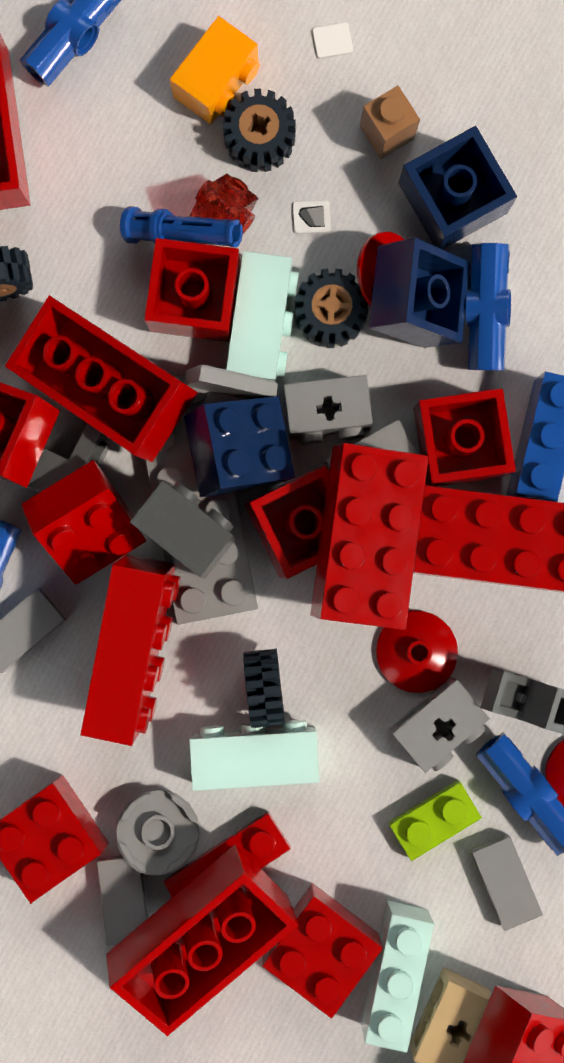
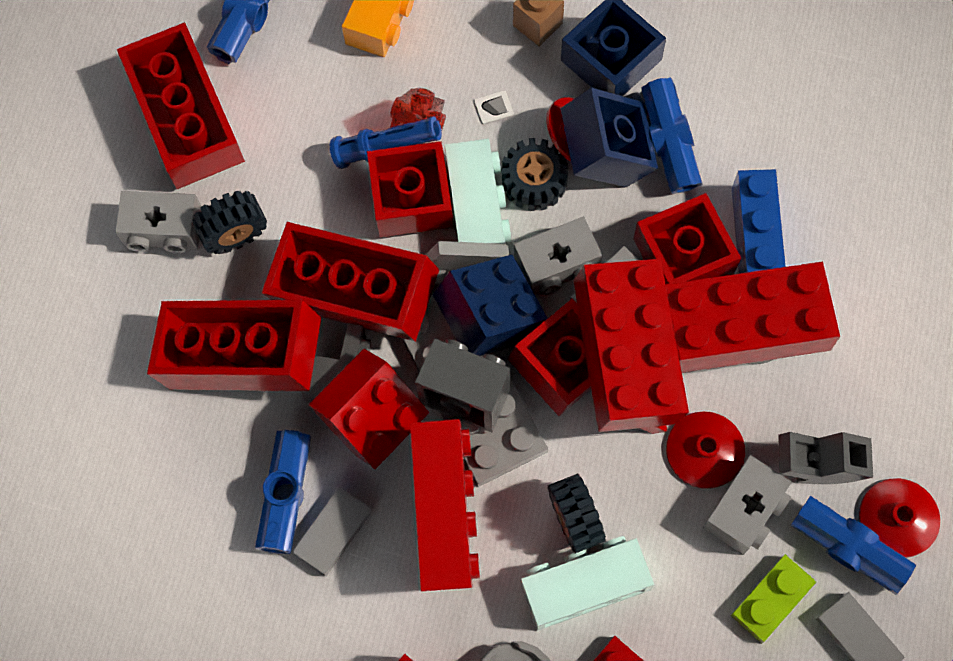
camera: 10 degrees left, 15 degrees down
(262, 145) = (424, 61): black wheel -> none

